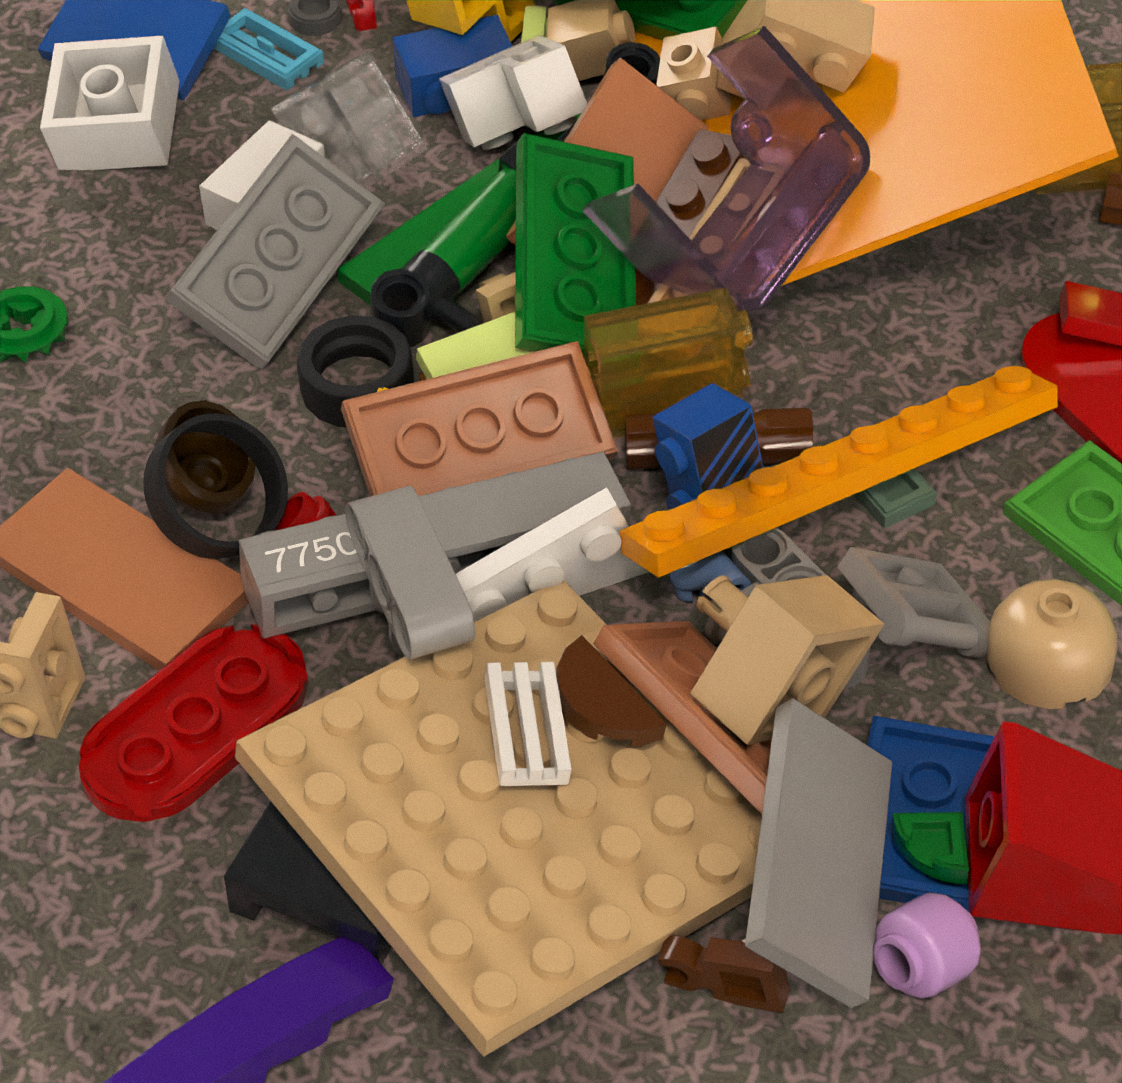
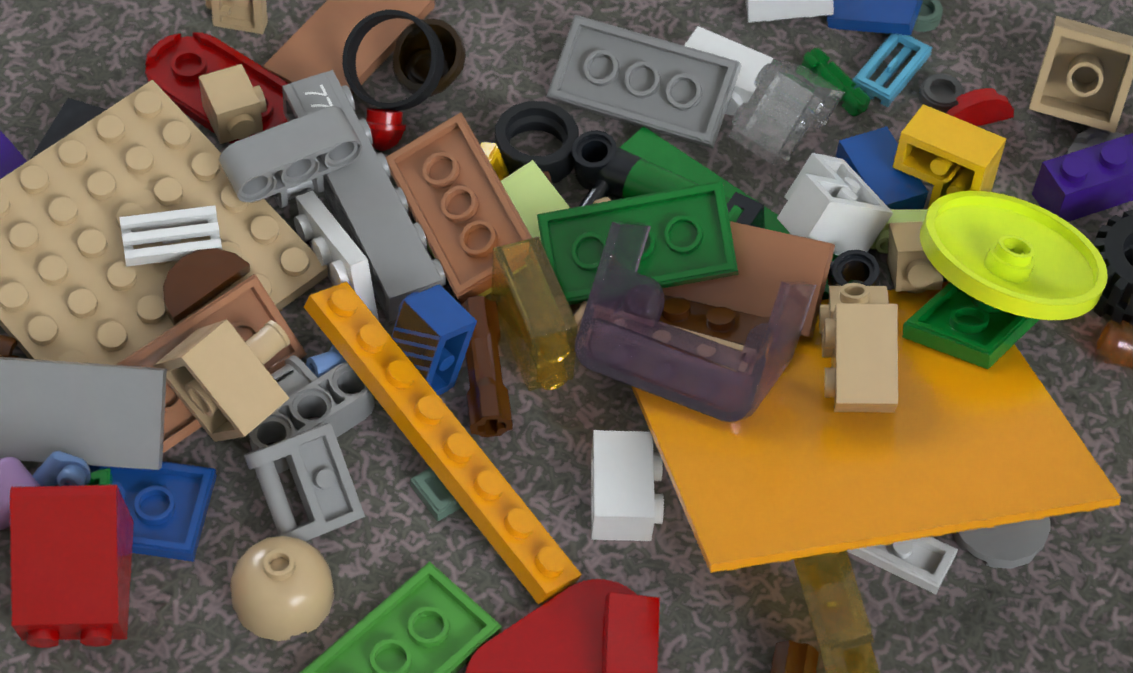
camera: 80 degrees right, 5 degrees up
(250, 109) = (854, 100): none -> green axle
(262, 676) = (232, 103): none -> tan brick
(898, 317) = (624, 486): none -> white brick
(902, 855) = (62, 469): none -> medium blue arm

